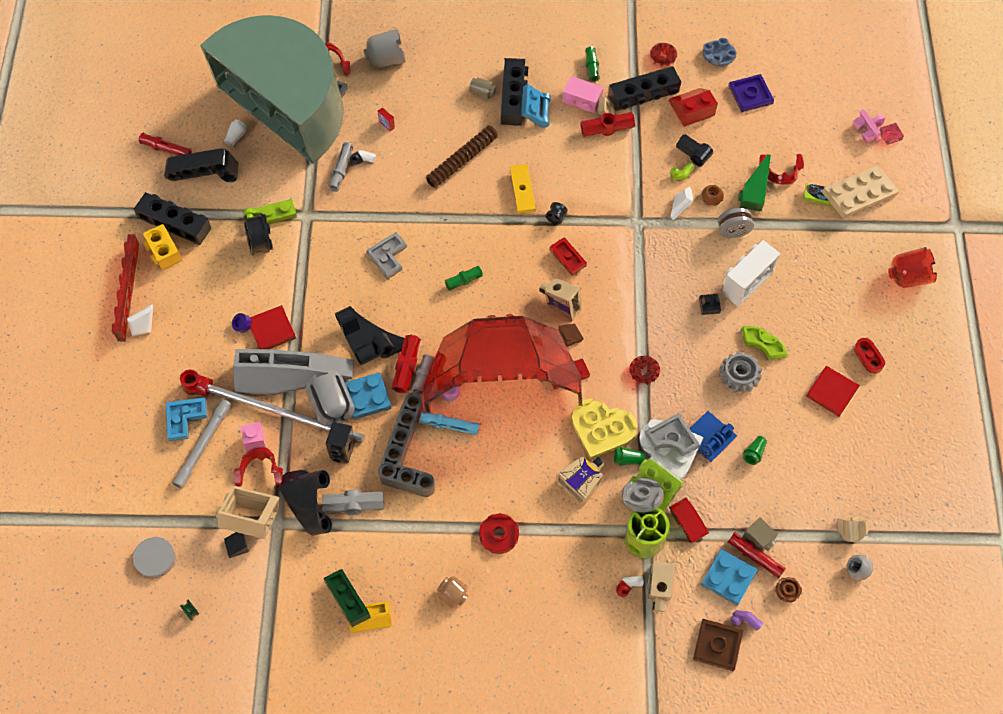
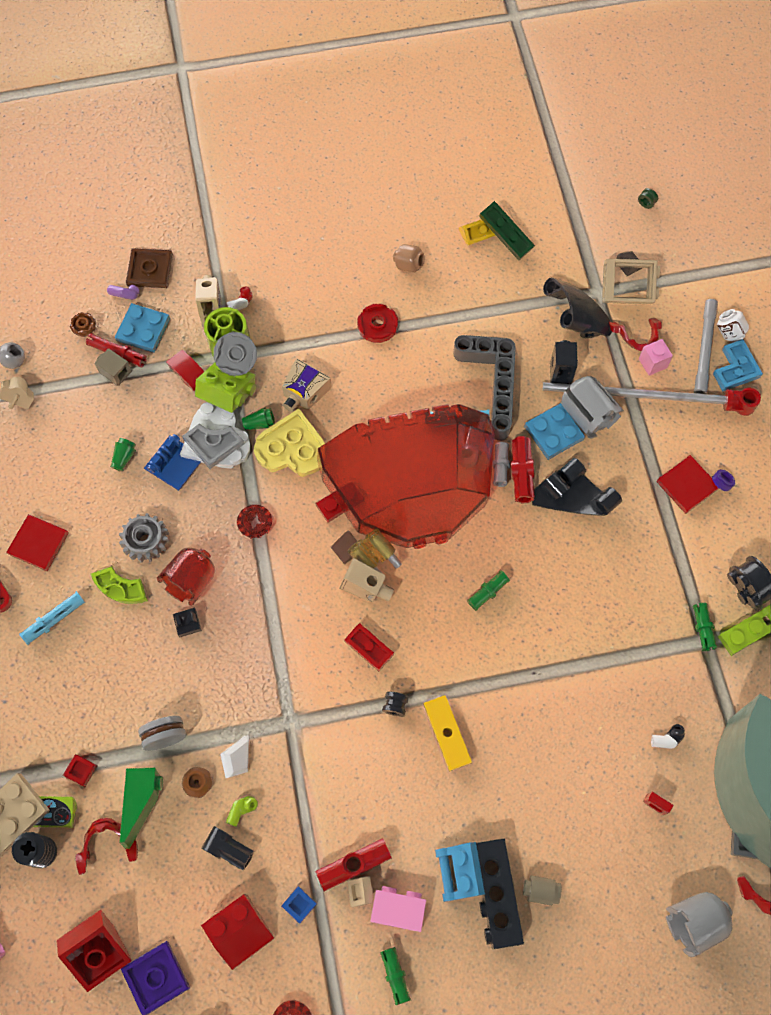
camera: 170 degrees right, 5 degrees up
(154, 557) = (702, 237): light grey tile -> none
(170, 451) = (733, 325): none -> white head
(282, 370) = (649, 434): light grey wedge -> none
(305, 220) = (704, 627): none -> green pin
(338, 172) = (691, 719): light grey pin -> none
(352, 502) = (530, 318): light grey piece -> none
(383, 254) = (594, 605): light grey tile -> none
(461, 156) = (538, 766): reddish brown piece -> none
(550, 315) = (373, 550): none -> clear yellow piece
(644, 88) = (272, 960): black brick -> none
(649, 113) = (299, 905): none -> blue tile
(705, 329) = (188, 574): none -> clear red cylinder
(750, 272) = (138, 660): white brick -> none
(793, 110) = (93, 951): none -> red slope
(799, 219) = (80, 770): none -> red tile
(825, 323) = (51, 618): none -> medium azure pin
(832, 166) = (34, 850): none -> black piece

